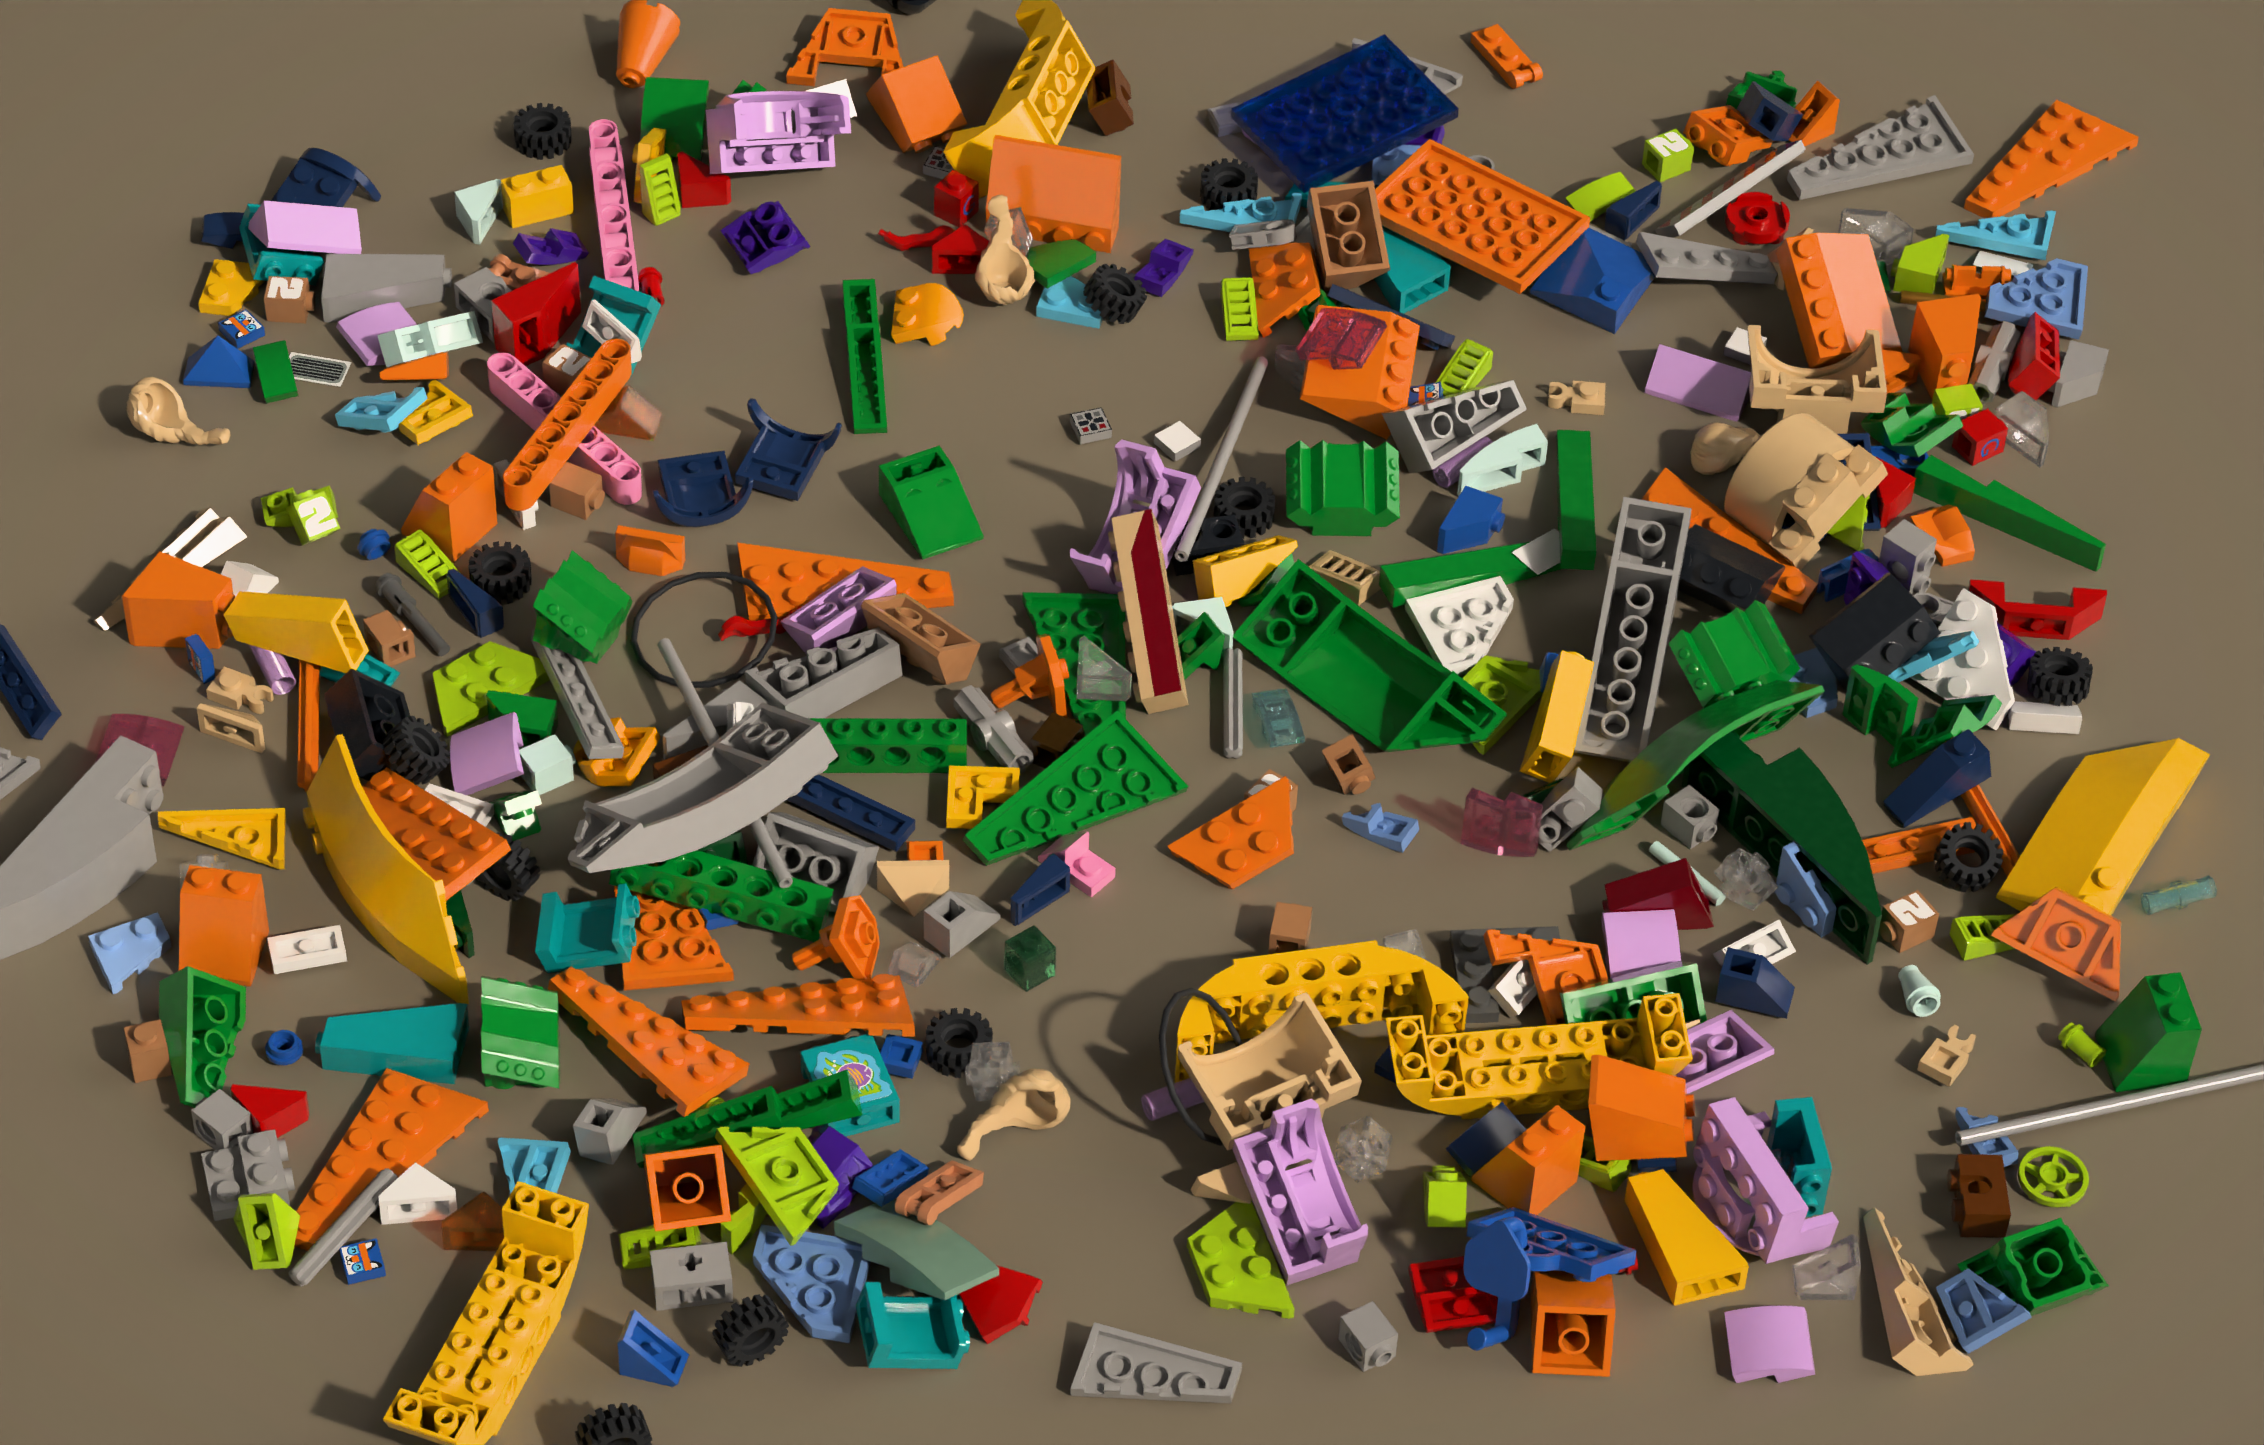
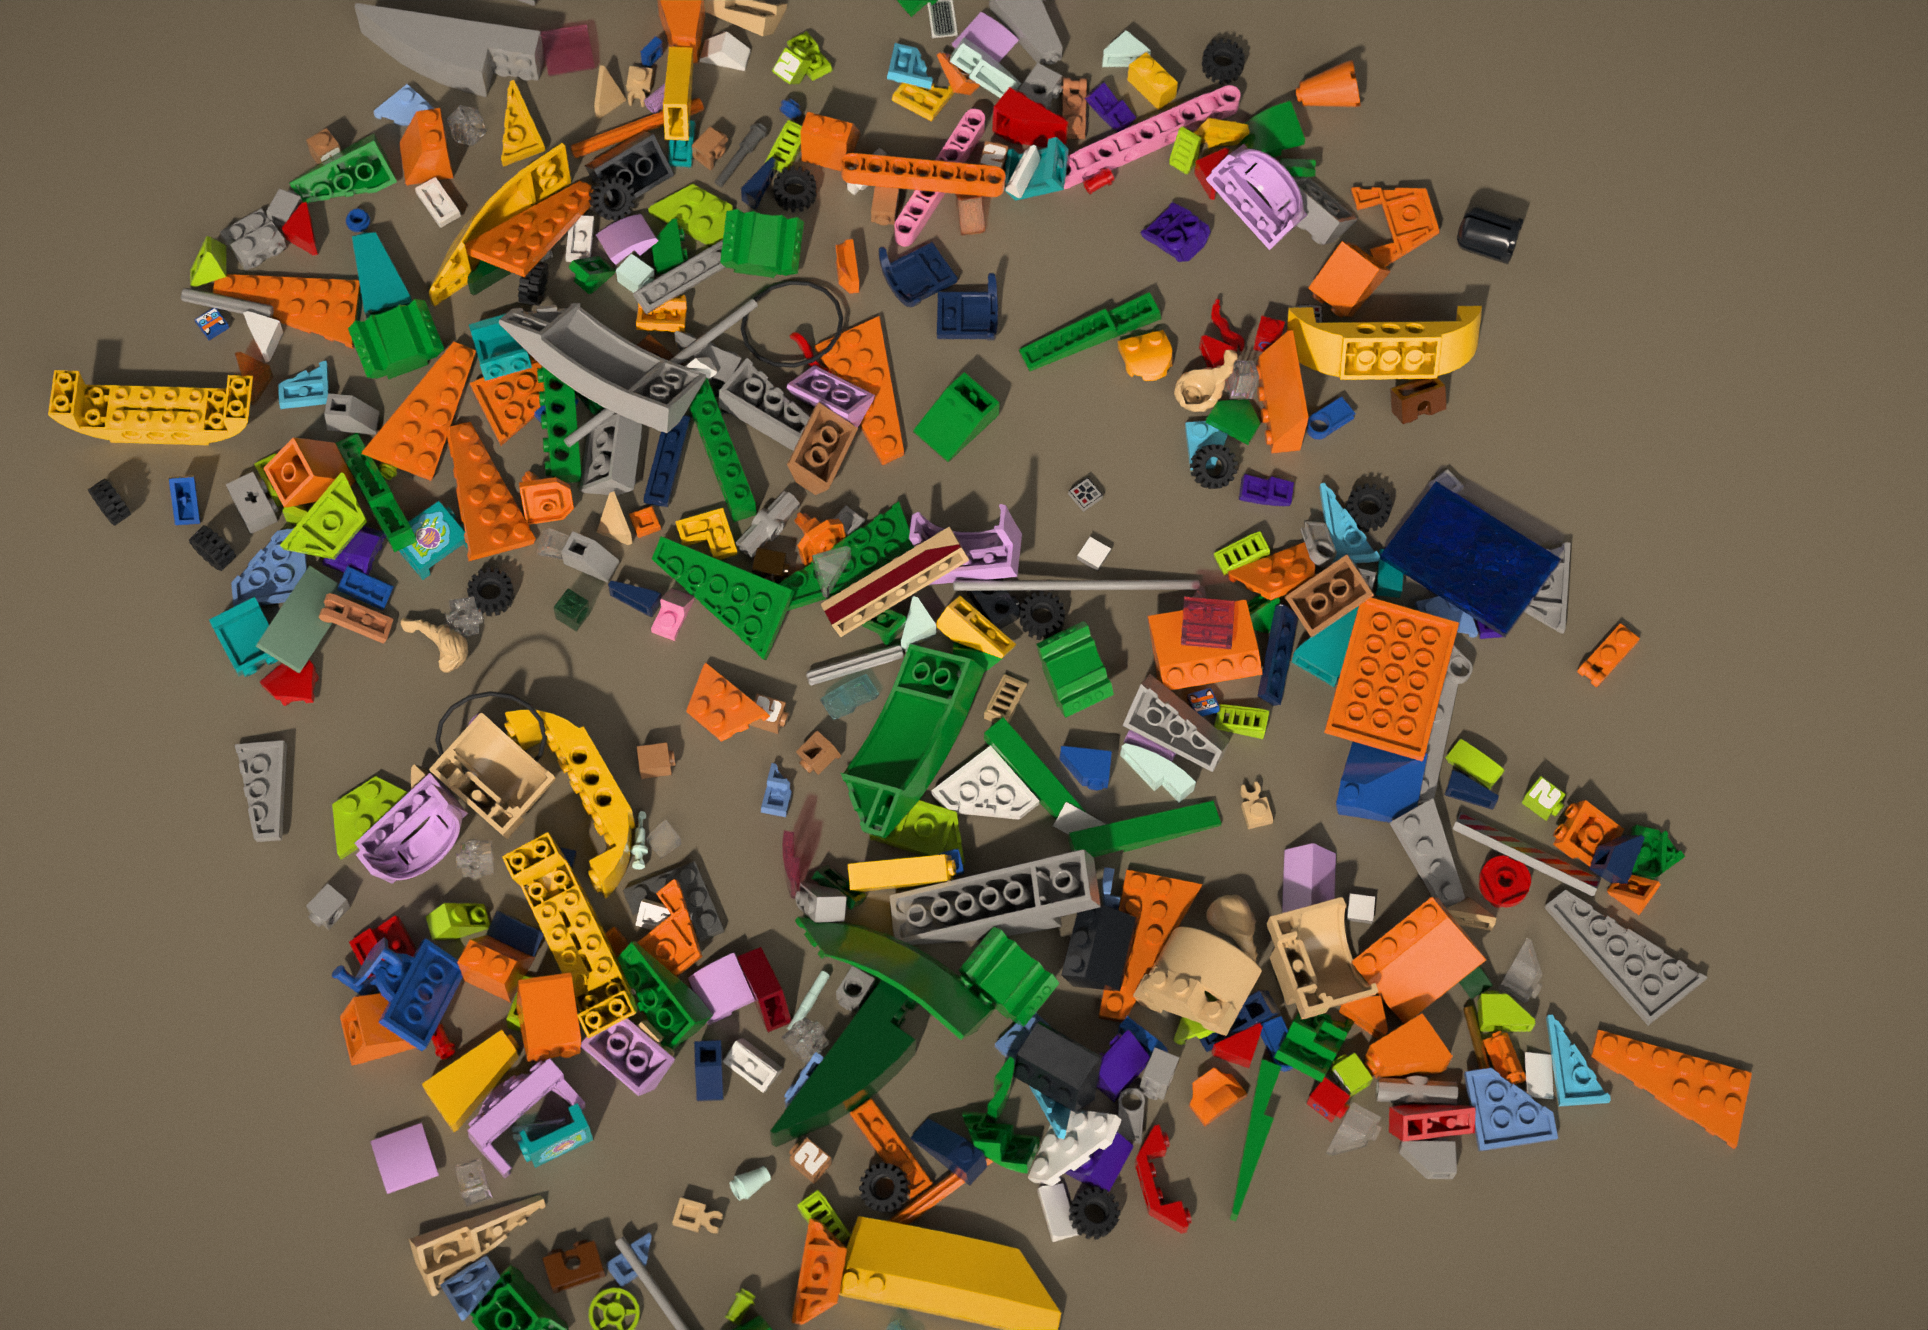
camera: 70 degrees right, 20 degrees up
(901, 1055) = (462, 566): blue plate -> none

